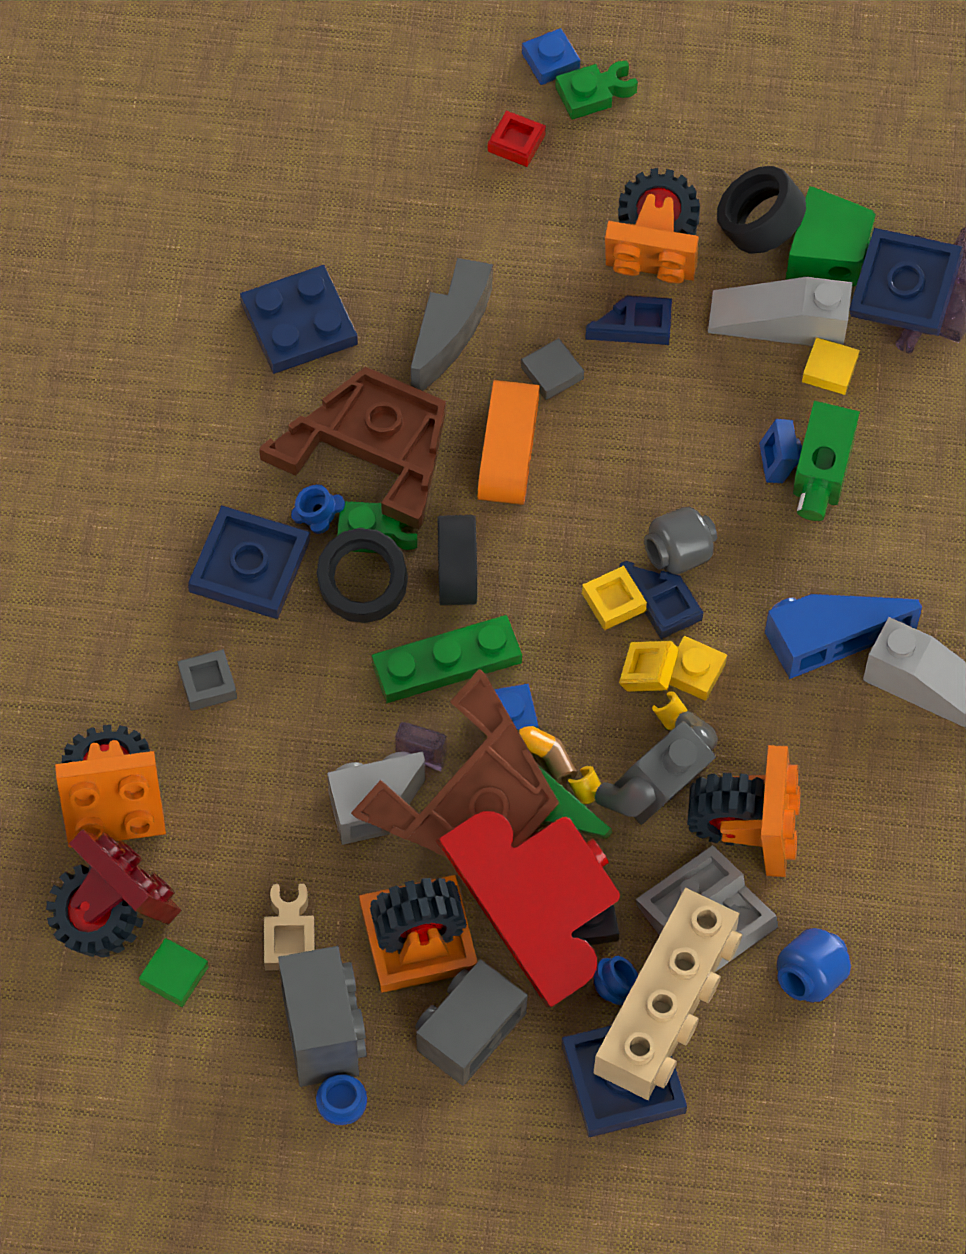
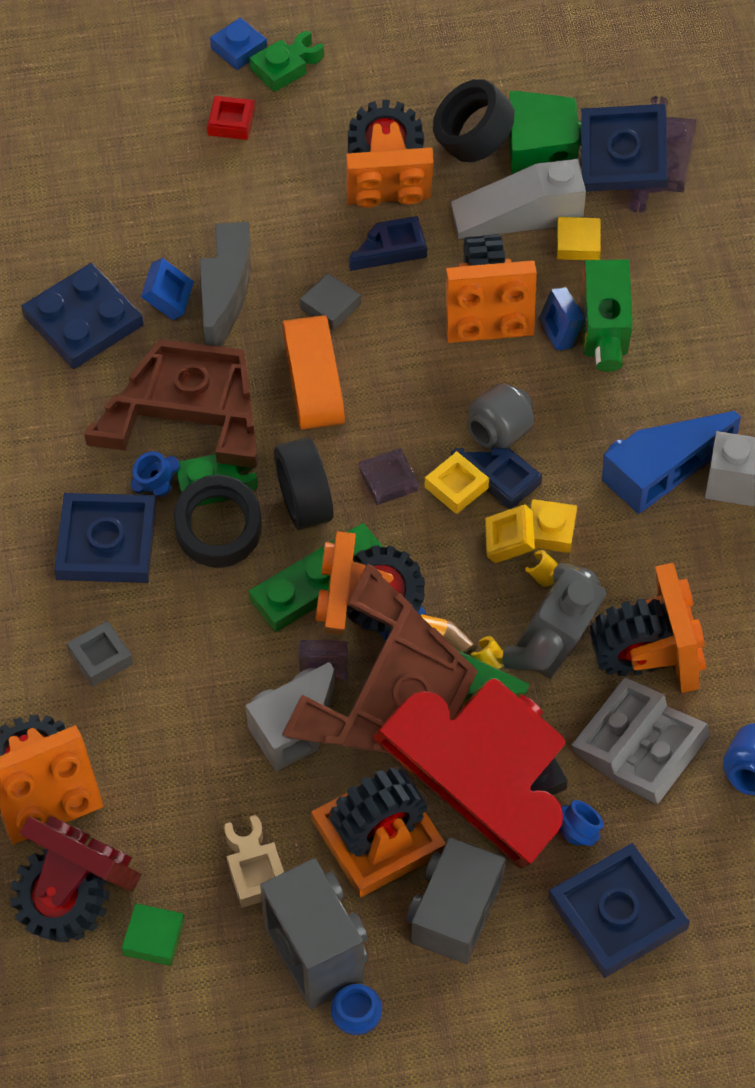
camera: 15 degrees left, 5 degrees down
(390, 313) = (167, 288): none -> blue plate
(507, 672) = (345, 573): none -> plate
(550, 572) = (388, 476): none -> tile
(667, 994) = (637, 821): tan brick -> none
(710, 406) = (489, 293): none -> orange plate

